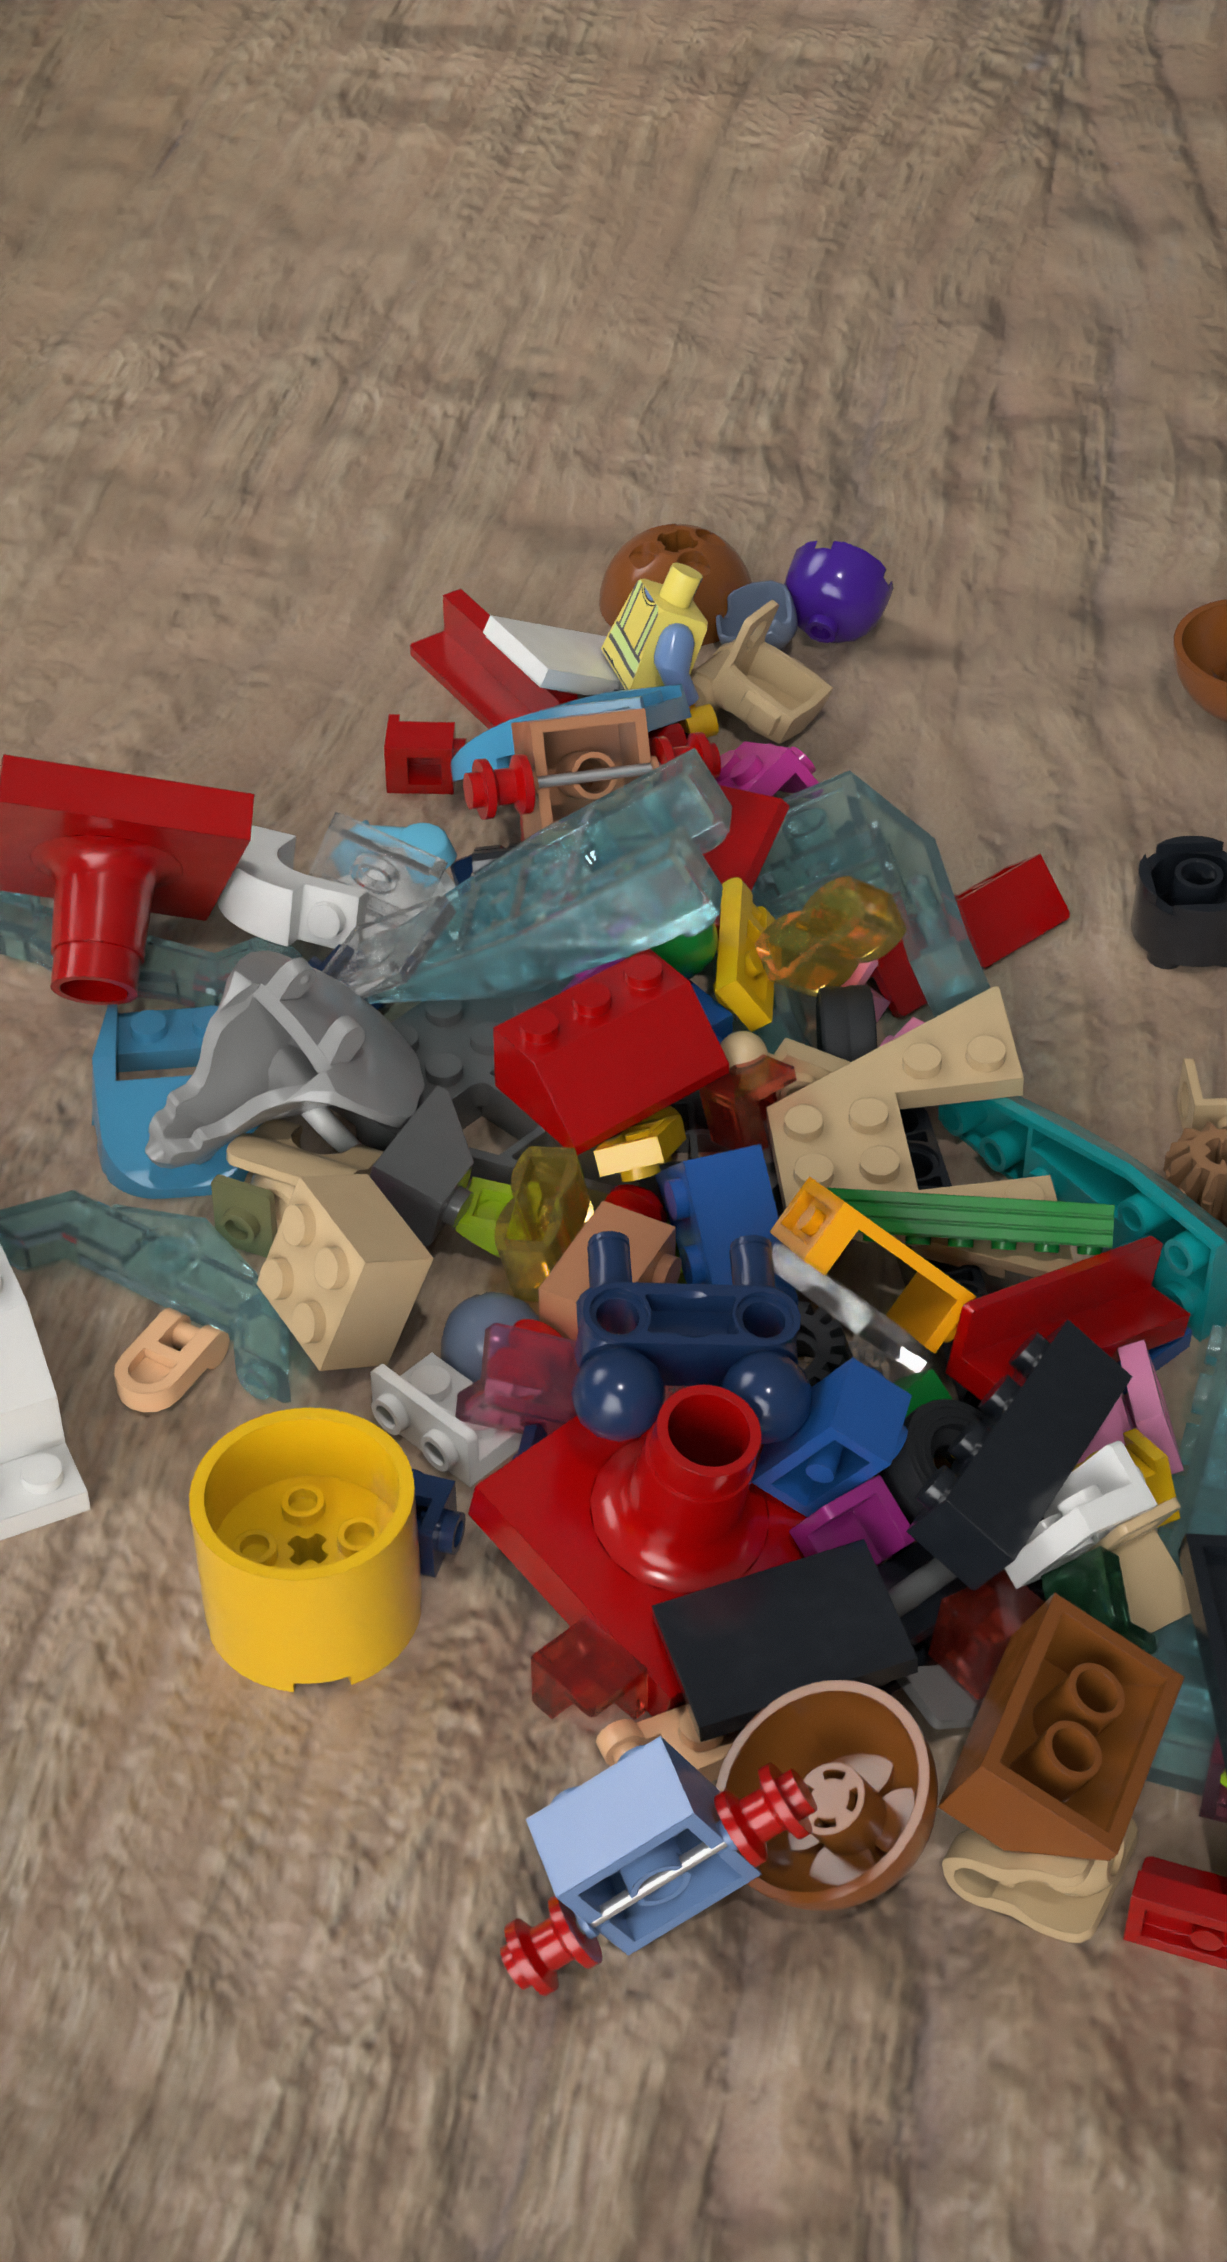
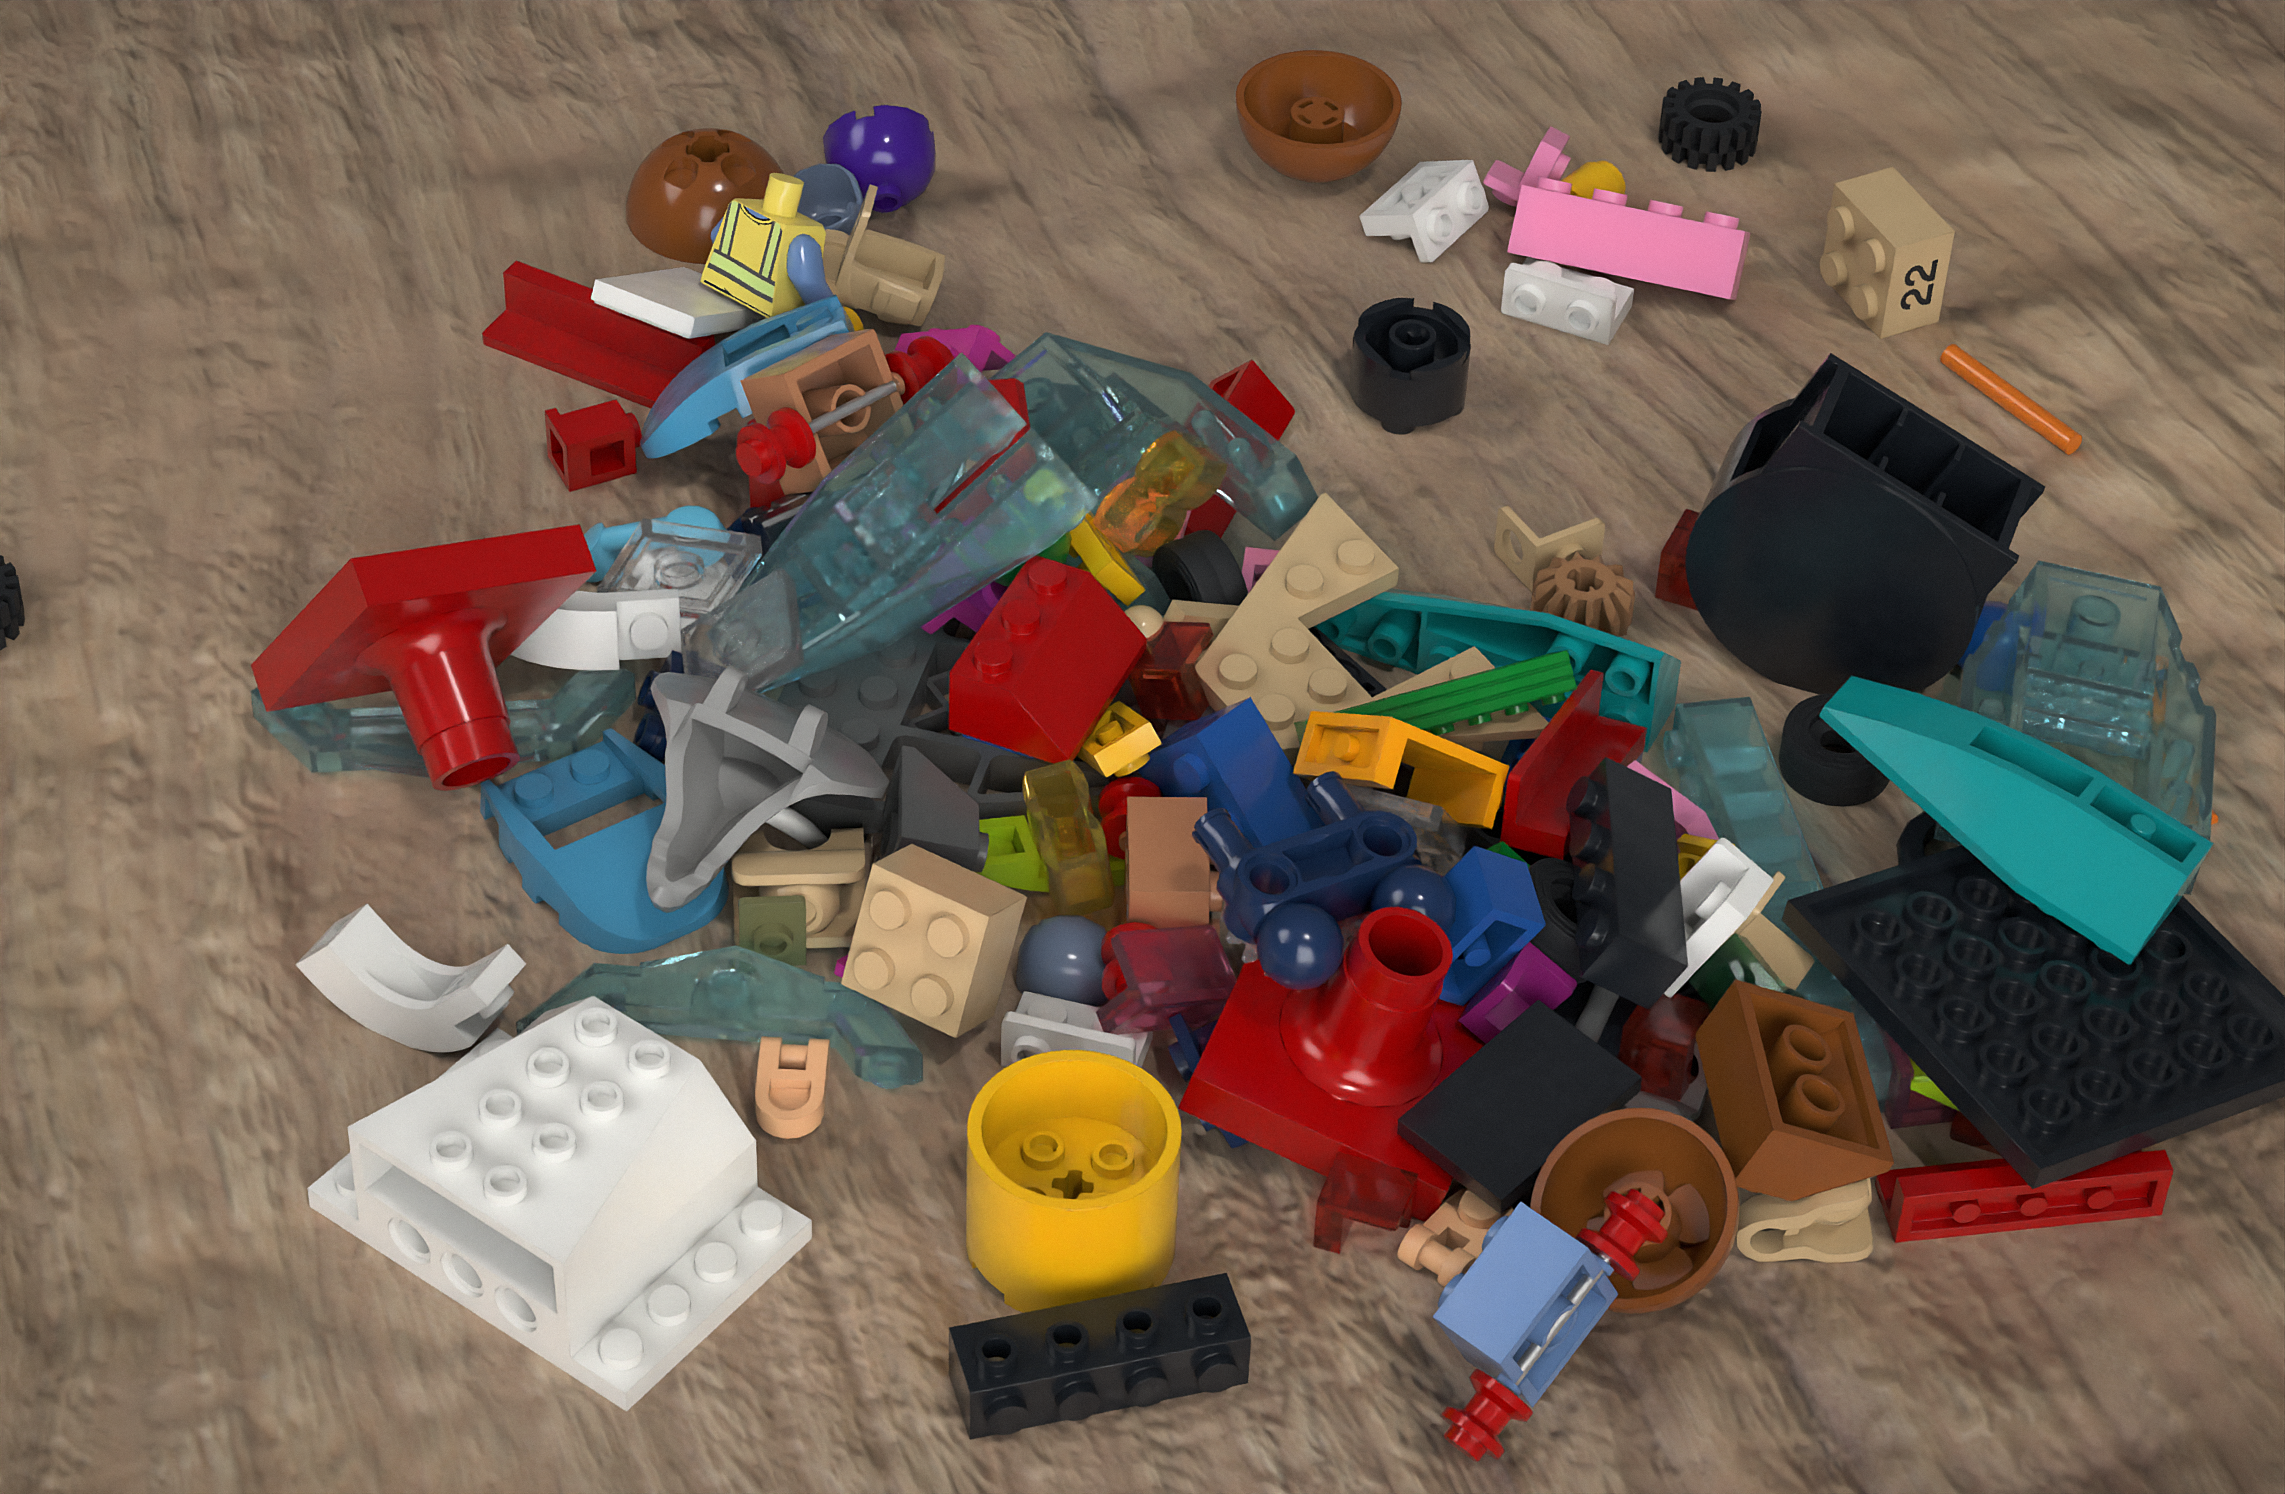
camera: 30 degrees left, 0 degrees up
(236, 1726) = (1098, 1356): none -> black brick

